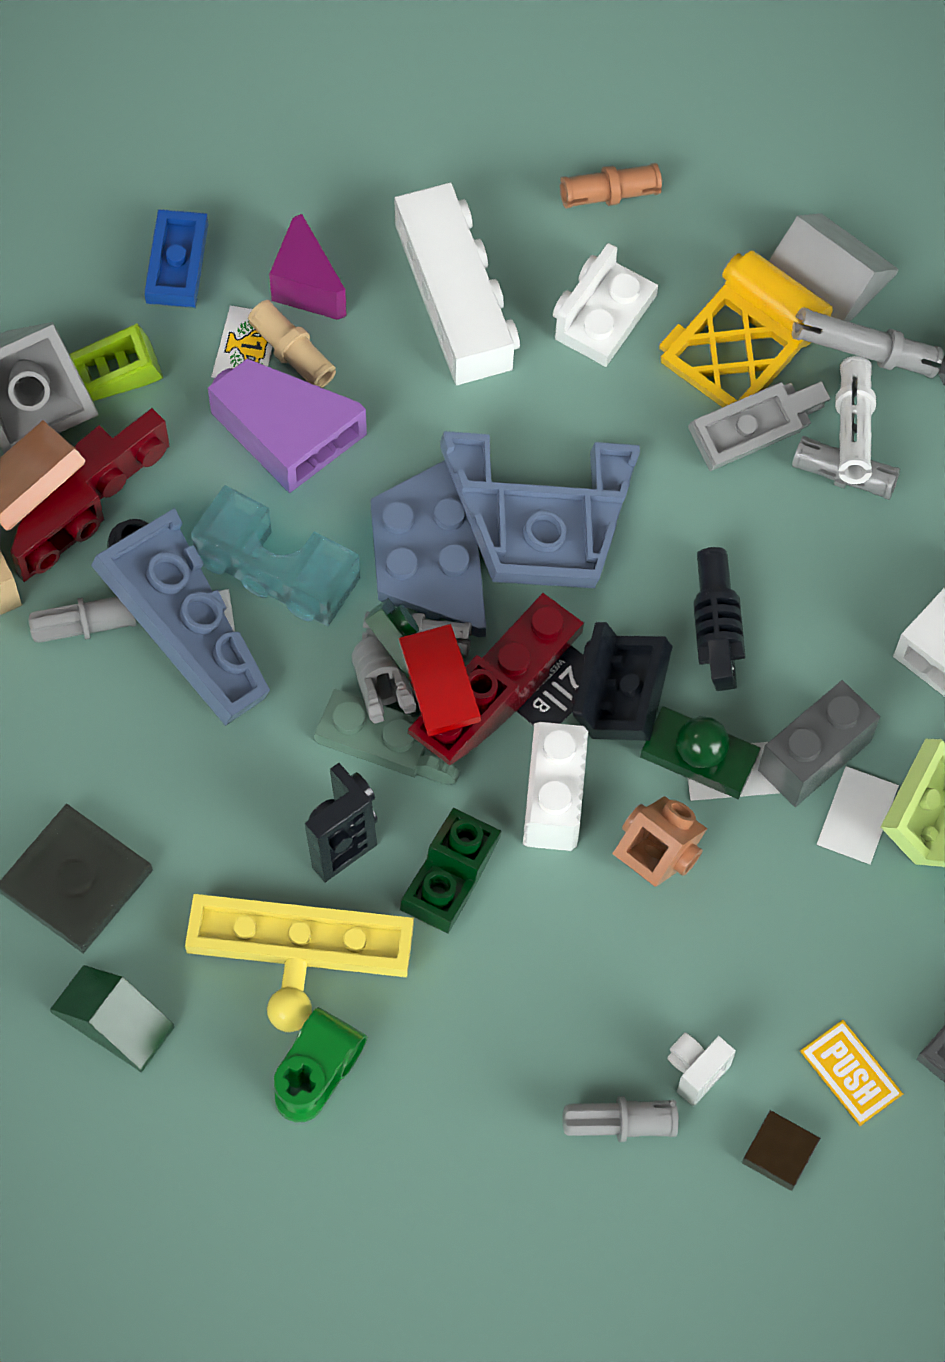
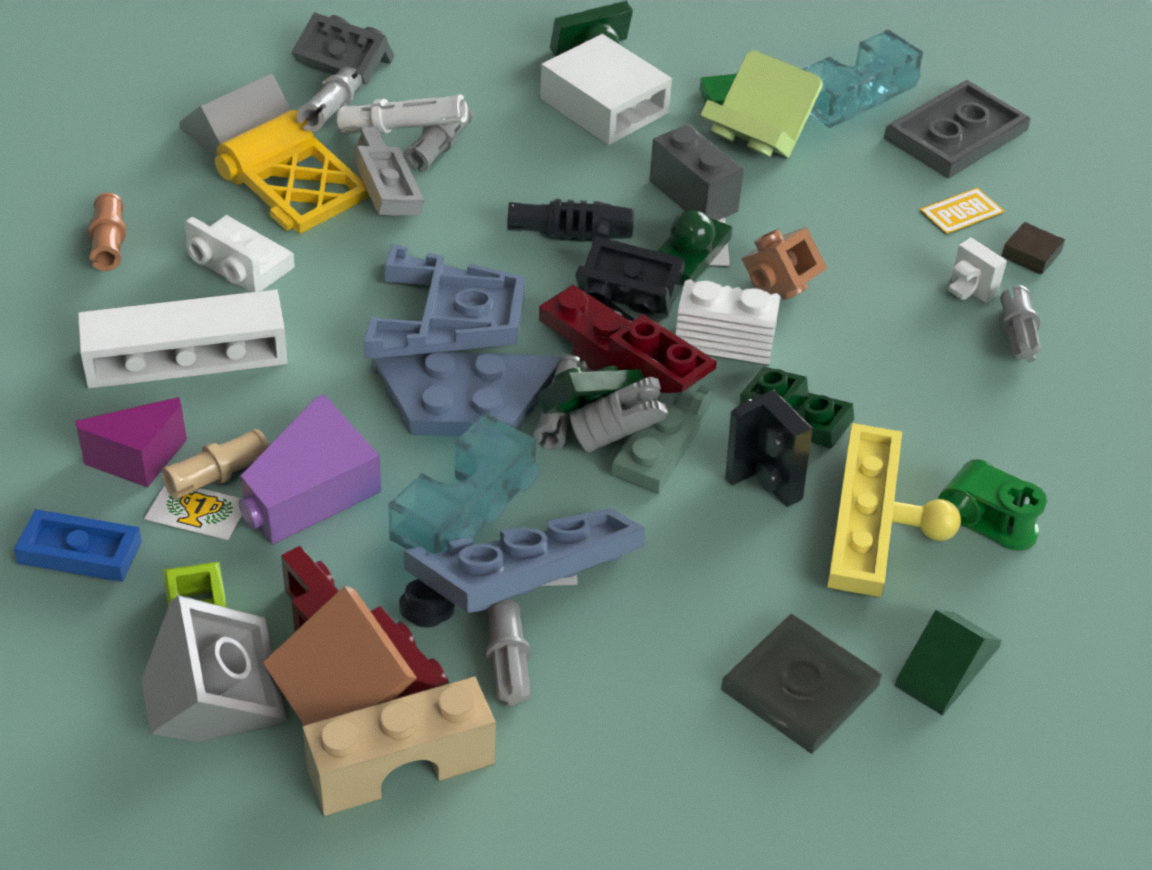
camera: 85 degrees left, 20 degrees down
(439, 680) = (635, 341): red slope -> none
(857, 815) = (761, 183): white sticker -> none

